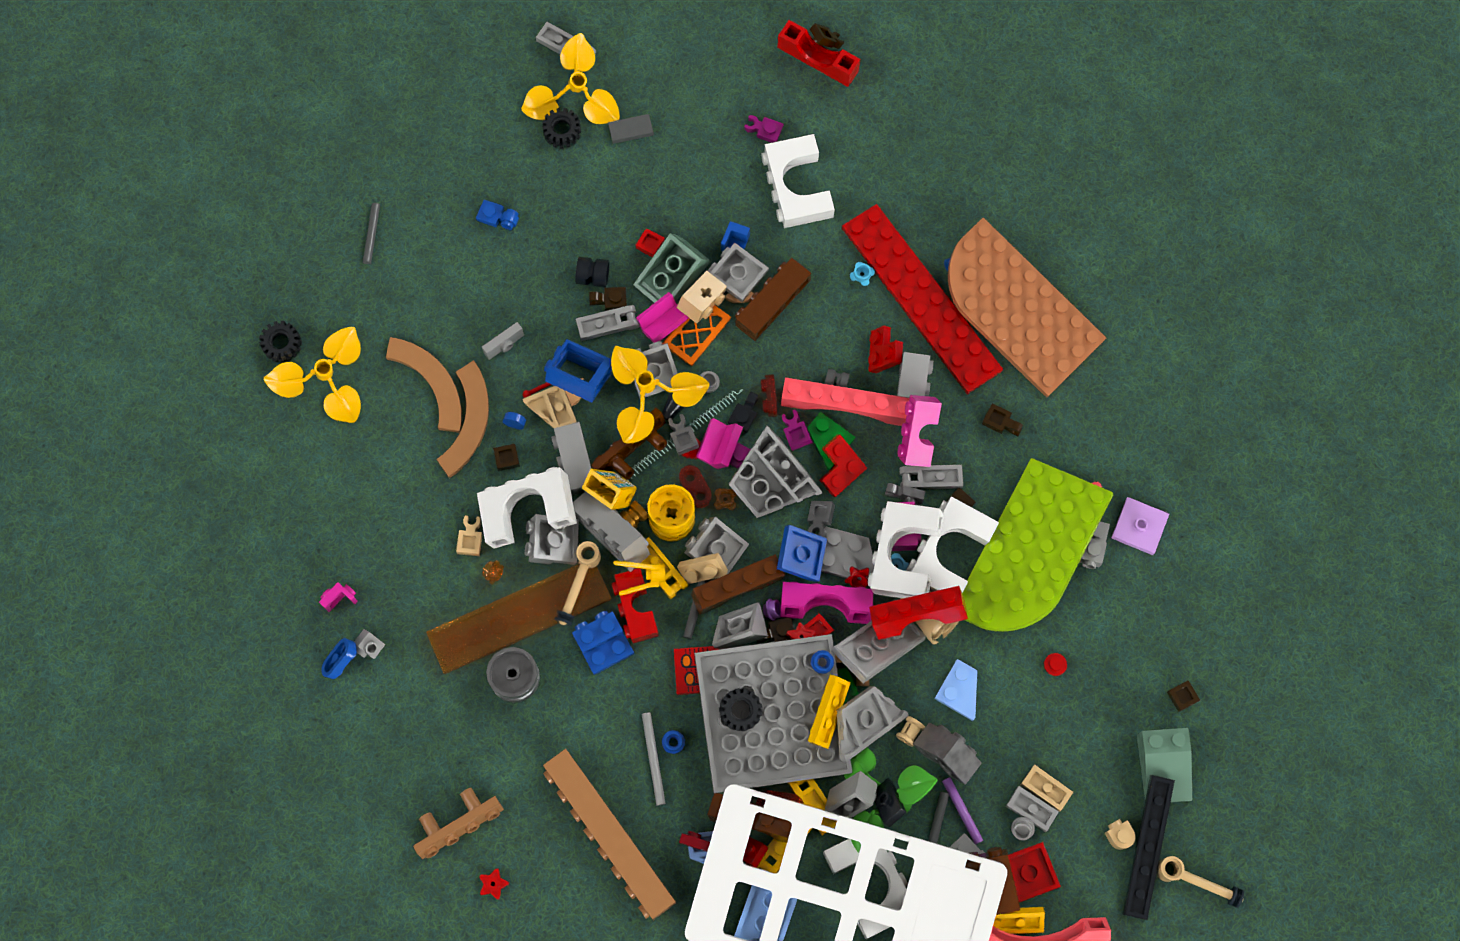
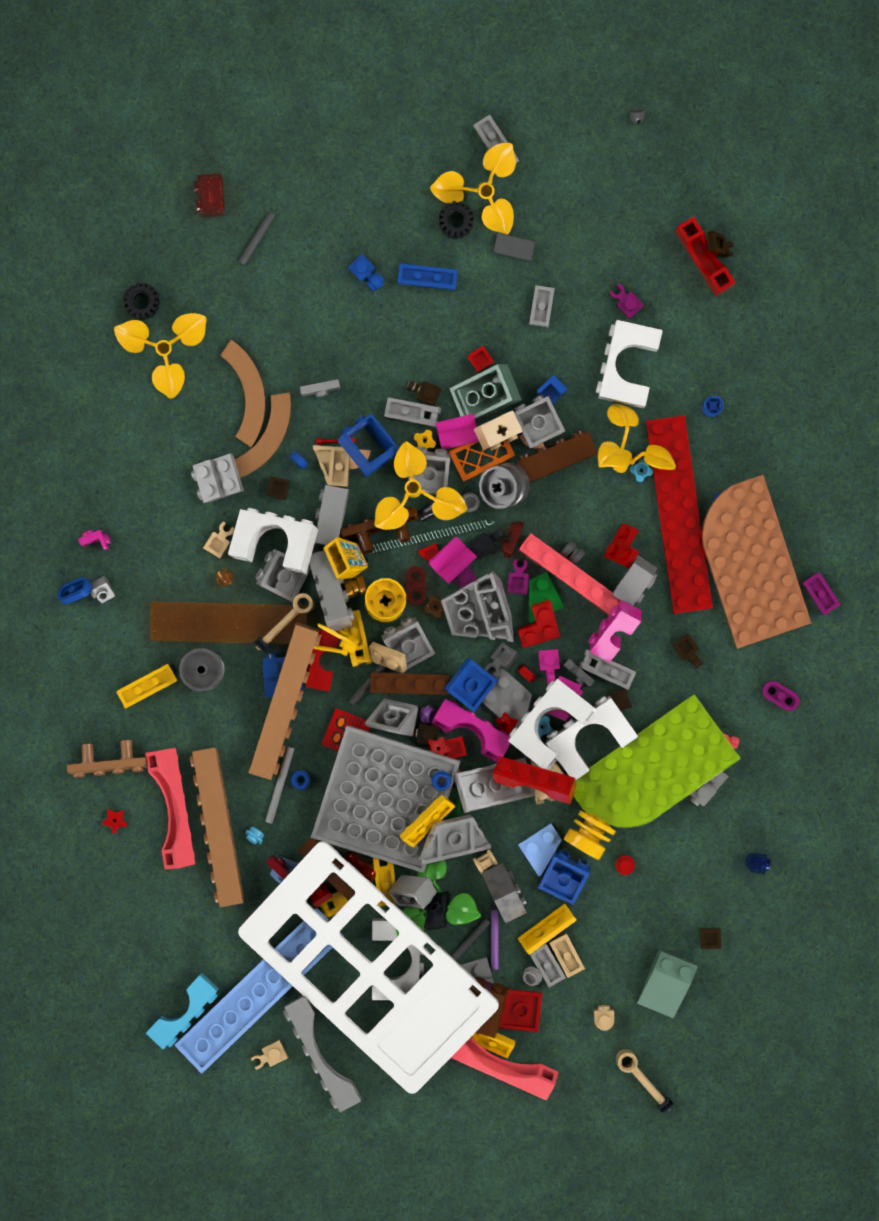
camera: 30 degrees right, 15 degrees up
(306, 212) = (210, 195): none -> clear red brick
(438, 476) = (217, 478): none -> light grey plate
(462, 722) = (147, 686): none -> yellow plate
(523, 801) = (178, 845): none -> coral arch
(559, 191) = (427, 276): none -> blue plate
(592, 272) = (420, 363): black wheel -> none
(616, 665) = (284, 700): none -> medium nougat brick
(633, 337) = (426, 435): none -> yellow plate
(652, 824) = (254, 835): none -> medium azure plate
(683, 436) = (425, 542): flat silver plate -> none
(685, 168) = (541, 306): none -> light grey plate
(735, 344) = (504, 485): none -> flat silver wheel
(740, 695) = (360, 799): black tyre -> none
(837, 262) = (612, 456): none -> yellow plant
(852, 519) = (527, 673): none -> red piece
(869, 498) = (549, 661): none -> dark pink plate
(900, 178) = (712, 406): none -> blue wheel
(1001, 706) = (565, 876): none -> blue plate
(1003, 644) = (589, 834): none -> yellow wheel
(1011, 770) = (546, 929): none -> yellow plate
(1100, 306) = (821, 593): none -> magenta plate
(1115, 420) = (780, 695): none -> magenta plate
(1140, 526) = (752, 789): lavender plate -> none
(1148, 847) = (619, 1037): black tile -> none
(1187, 595) = (757, 862): none -> clear blue plate

